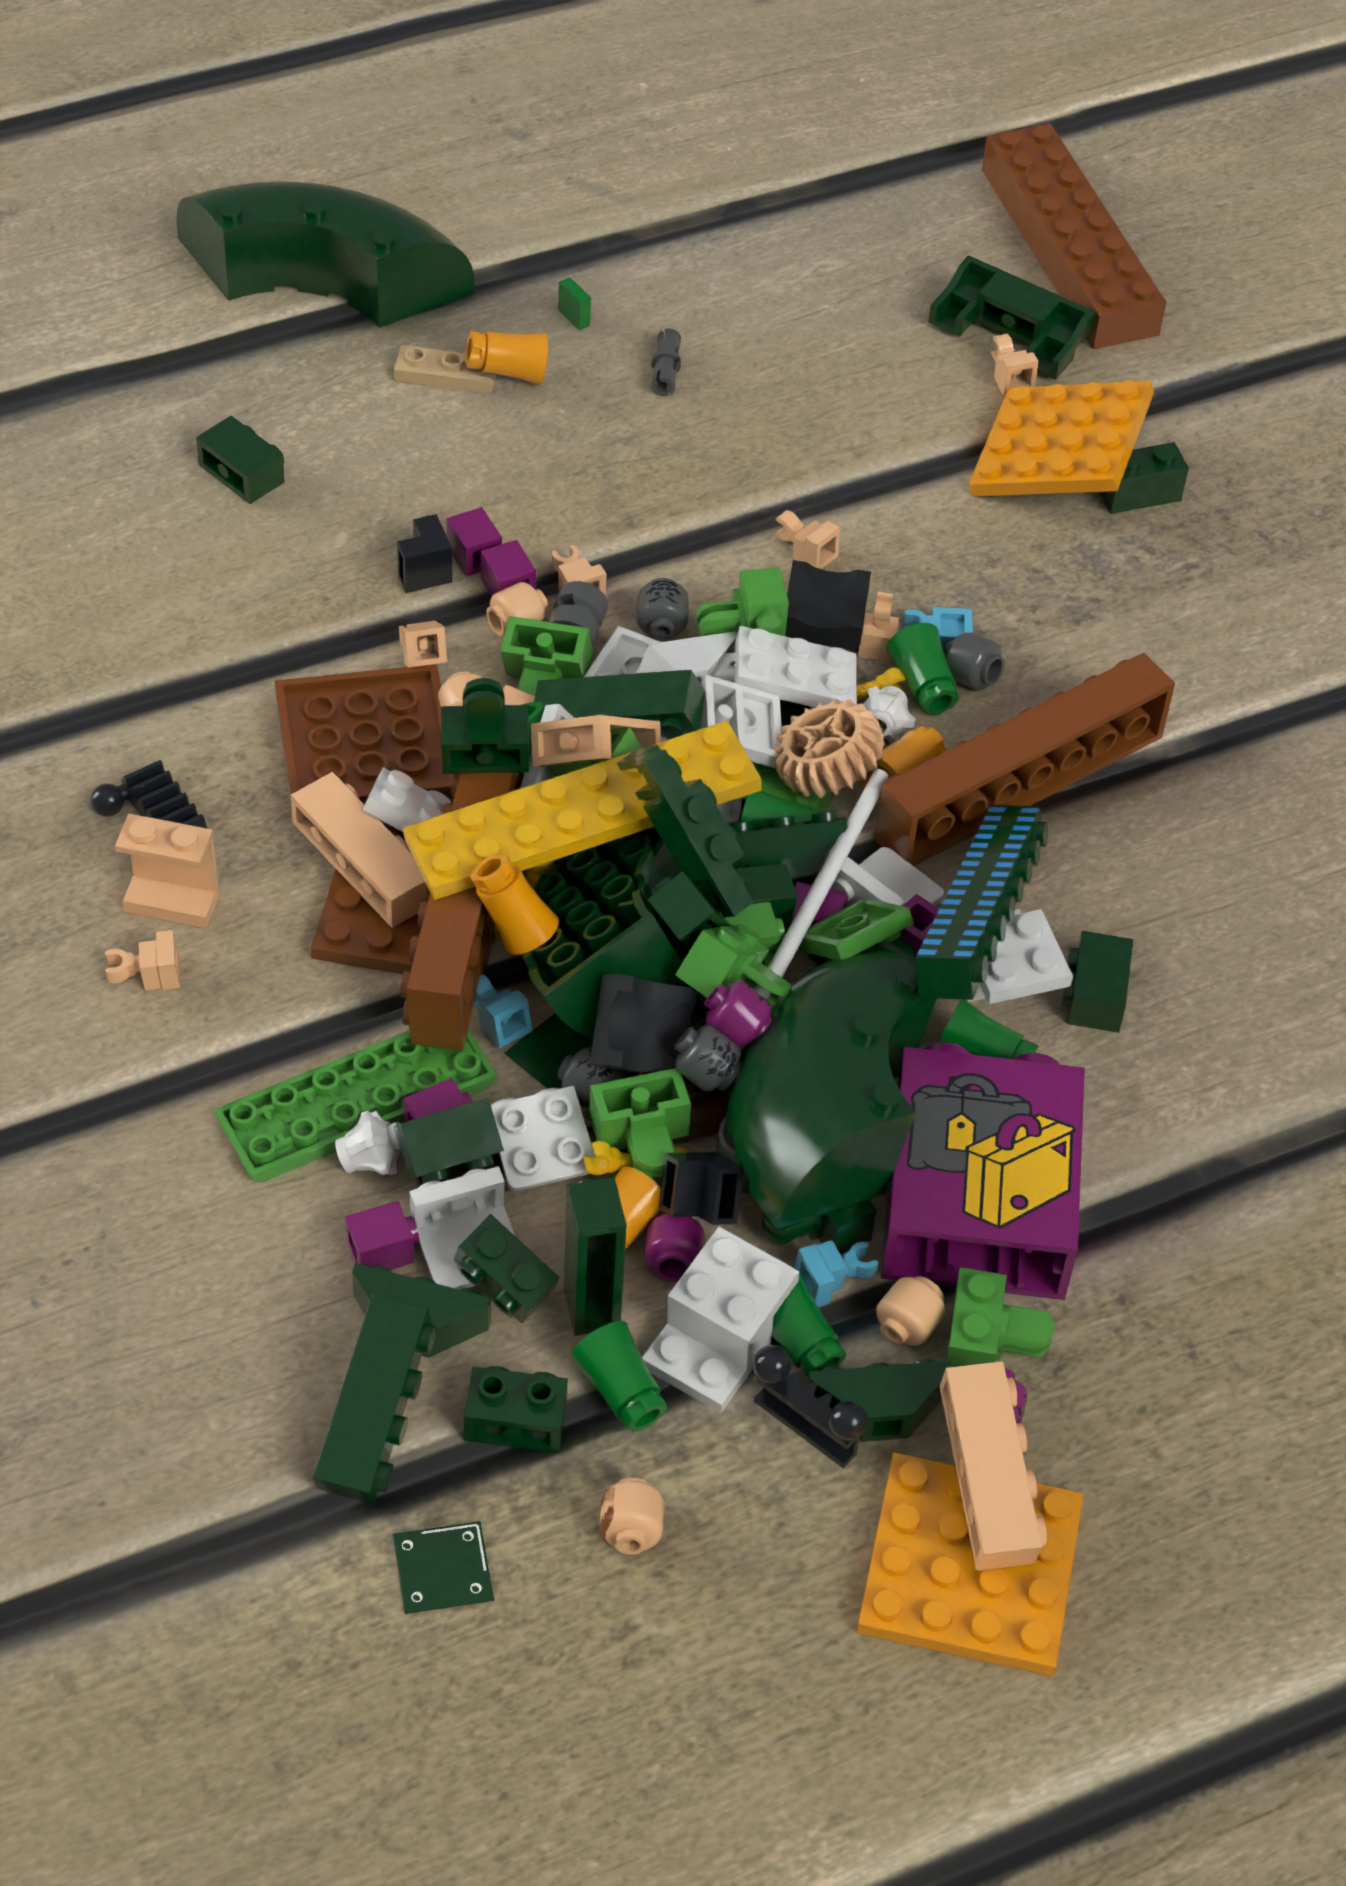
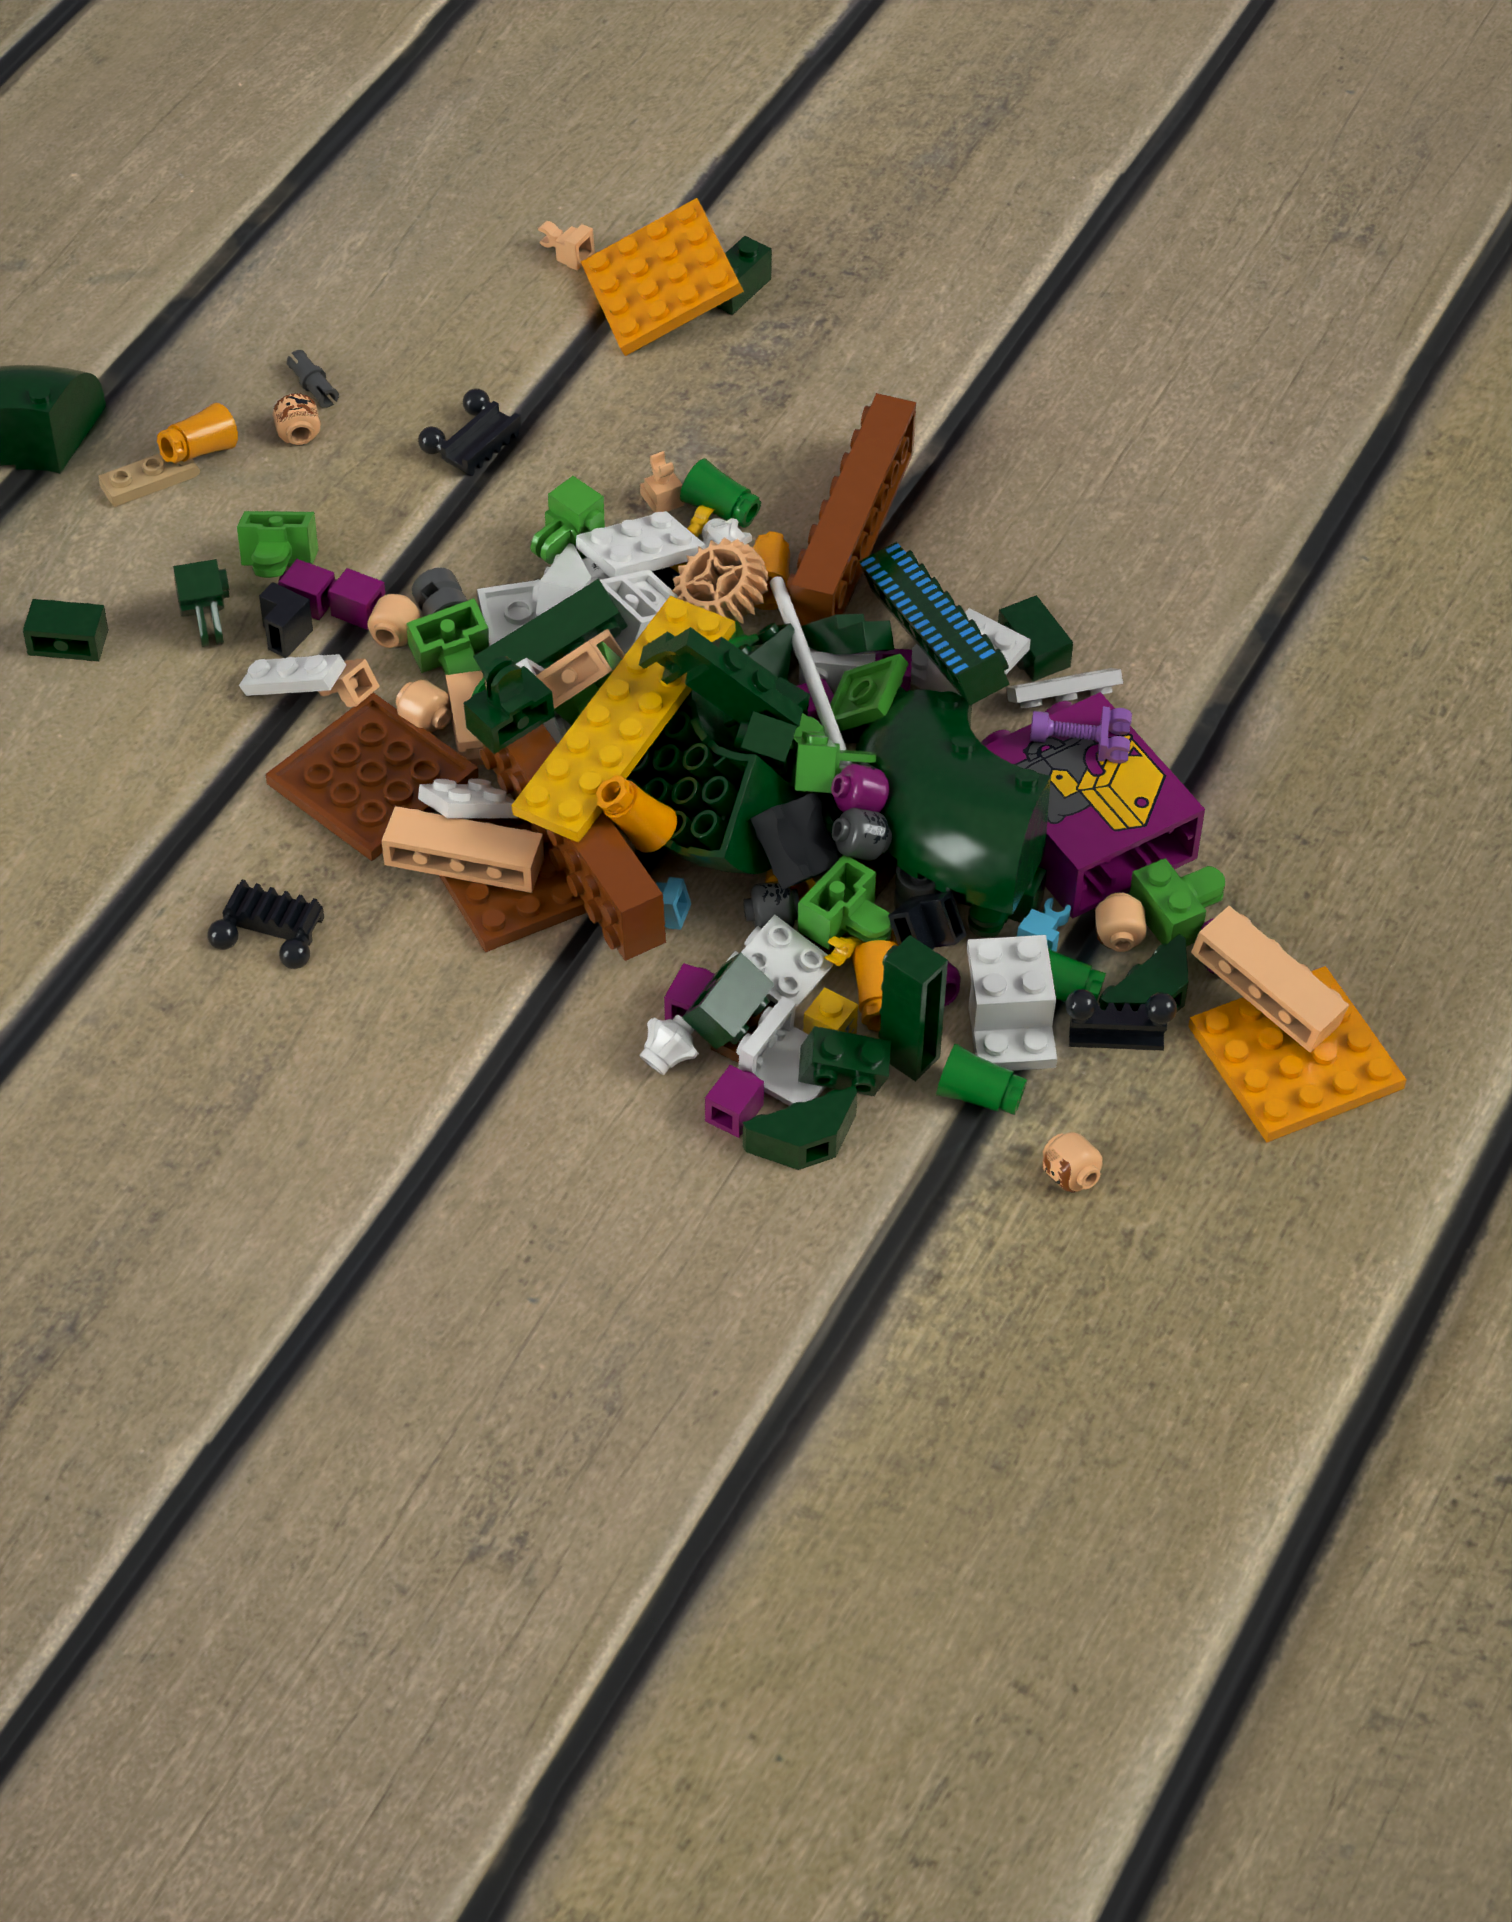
camera: 35 degrees left, 0 degrees up
(156, 961) = (385, 1021): light nougat piece -> none
(170, 869) = (339, 948): light nougat panel -> none
(308, 1112) = (611, 1030): bright green plate -> none
(372, 491) = (202, 591): none -> dark green brick
(374, 1400) = (845, 1198): dark green brick -> none
(378, 606) = (292, 675): none -> white plate
(443, 1567) = (977, 1278): dark green sticker -> none
(484, 479) = (276, 540): none -> bright green brick
(515, 1409) = (932, 1147): dark green brick -> none
(538, 1221) = (831, 1012): none -> yellow brick
(546, 1048) = (719, 908): dark green sticker -> none
(574, 303) = (201, 371): green tile -> none
(577, 569) = (405, 569): light nougat piece -> none
(614, 389) = (296, 419): none -> light nougat head
(662, 606) = (496, 558): dark grey head -> none
(757, 492) = (477, 438): none -> black gear
(814, 544) = (555, 450): light nougat piece -> none
(826, 605) = (619, 482): black brick -> none
(895, 865) = (849, 635): none -> dark green slope
(949, 621) = (705, 448): medium azure plate -> none
(974, 661) = (748, 468): dark grey head -> none
(983, 1034) = (996, 716): green plant -> none
(1015, 308) = (535, 199): dark green bracket -> none
(1031, 1125) = (1115, 721): none -> medium lavender bar
(1073, 234) = (520, 122): dark orange brick -> none
(1085, 1047) = (1064, 687): none -> white plate

